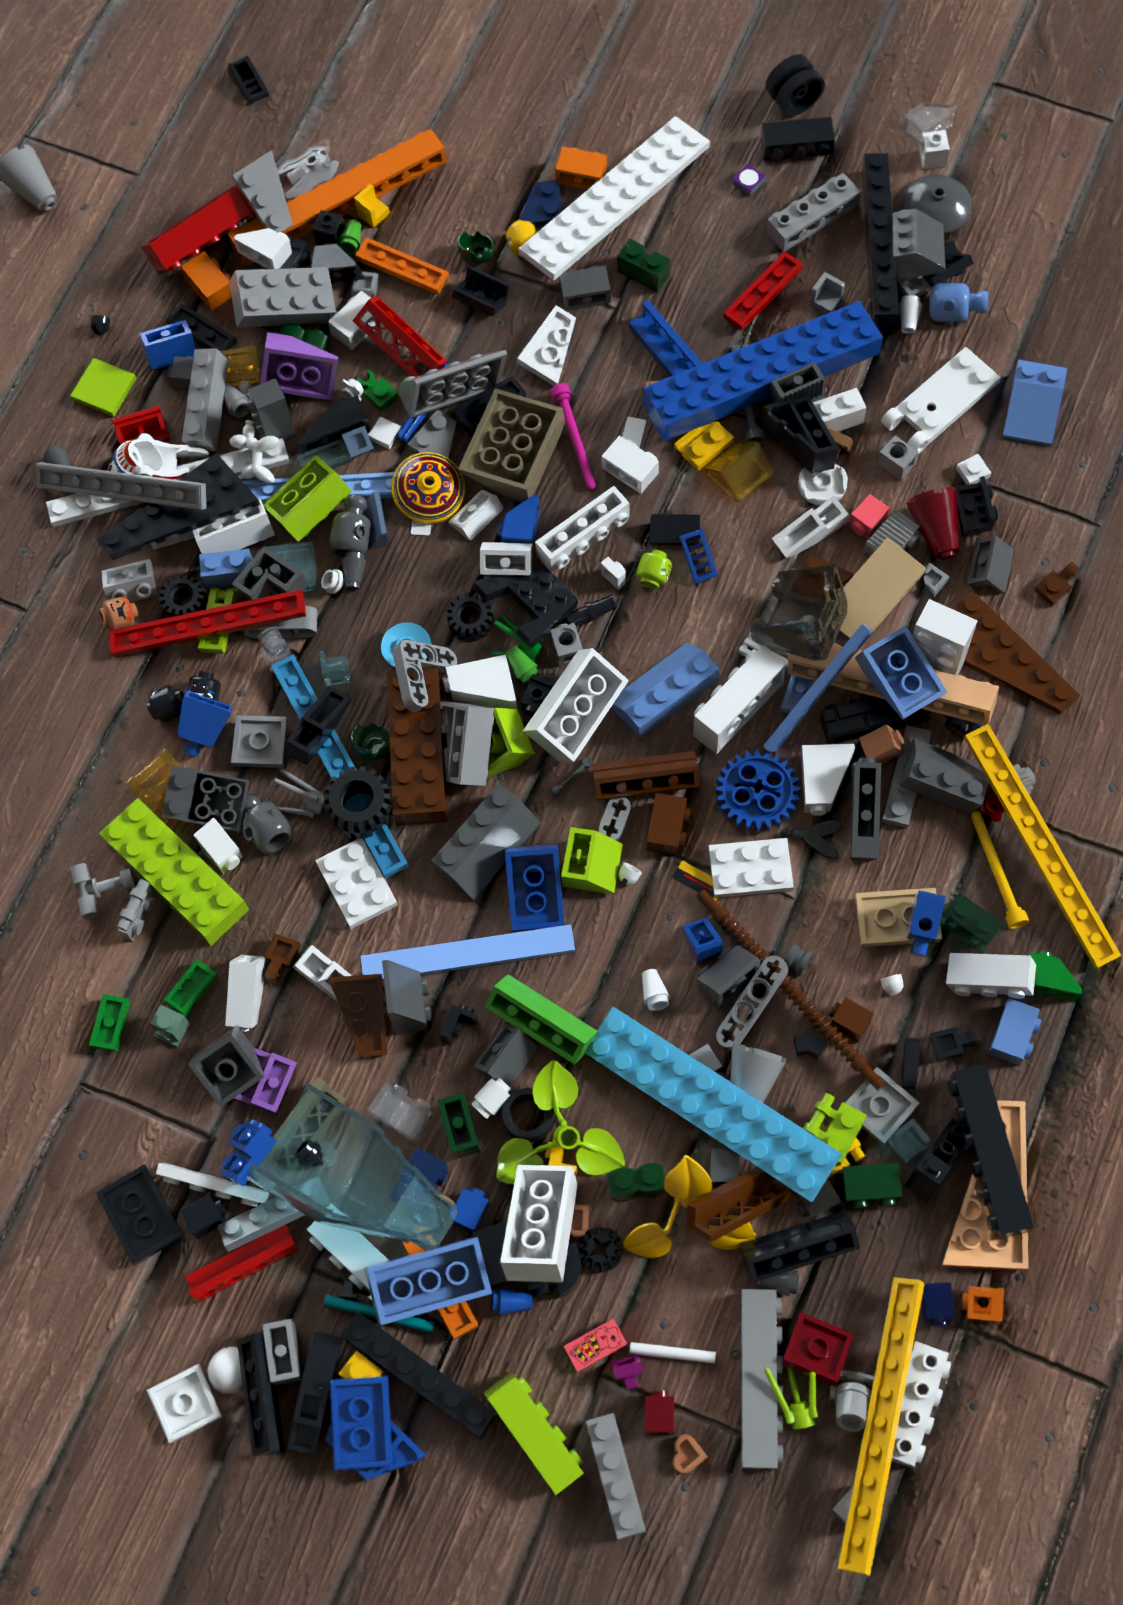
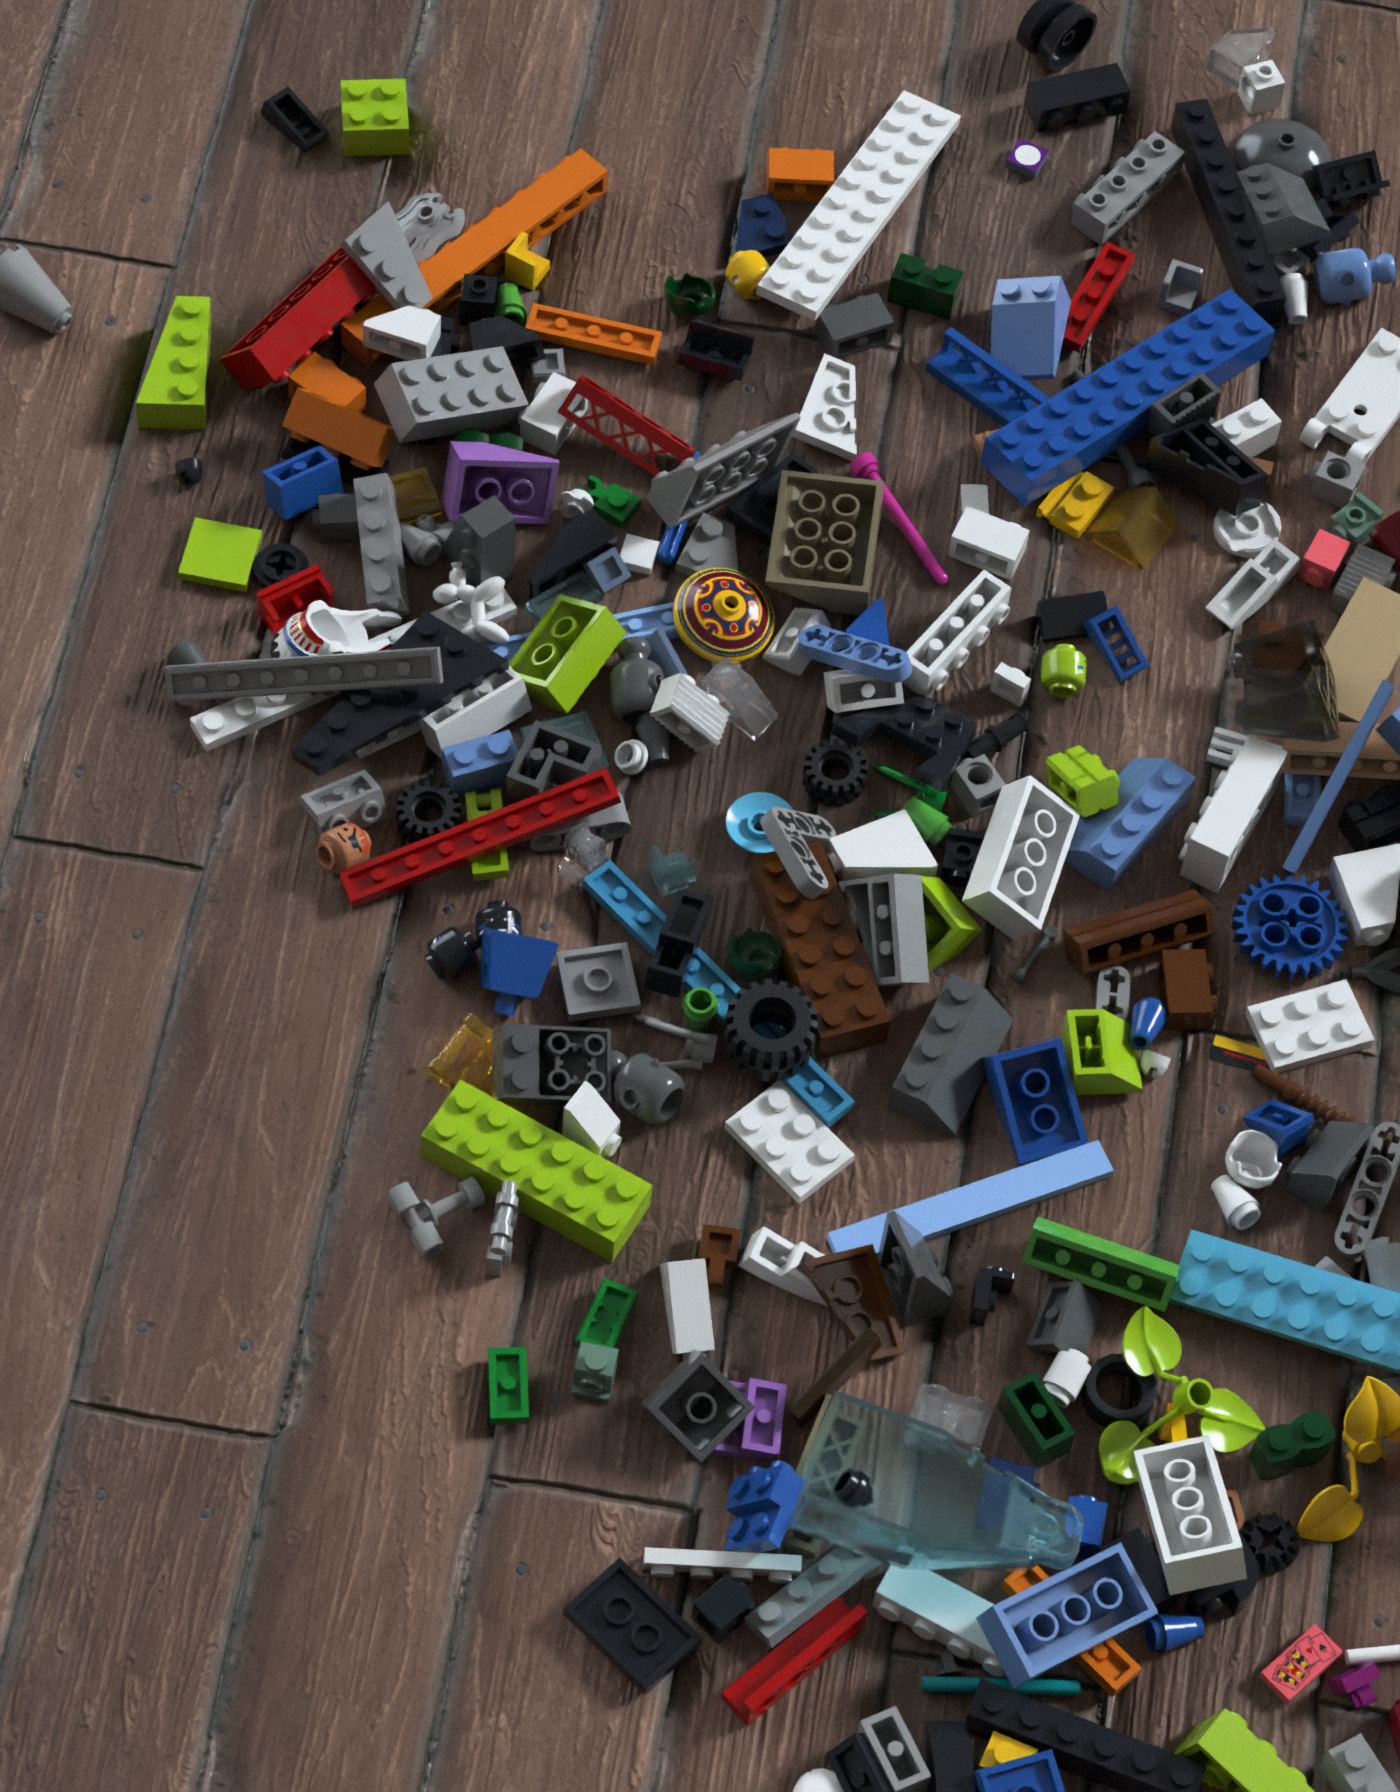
camera: 25 degrees left, 10 degrees down
(114, 249) = (178, 375): none -> lime wedge
(137, 395) = (272, 557): none -> black gear
(201, 309) = (338, 429): none -> orange brick
(299, 85) = (374, 117): none -> lime brick
(318, 775) = (700, 1008): none -> bright green cone
(329, 1064) = (835, 1376): none -> dark brown tile
(378, 556) = (689, 712): none -> white brick
(418, 551) = (740, 697): none -> clear slope
(498, 536) = (887, 665): none -> medium blue beam
(631, 843) = (1147, 1020): none -> blue cone
(640, 655) = (1083, 780): none -> lime brick
(675, 962) = (1252, 1159): none -> white hair
(706, 307) = (1029, 325): none -> medium blue slope
(898, 500) = (1356, 521): none -> sand green brick
(978, 228) = (1349, 177): none -> black bracket

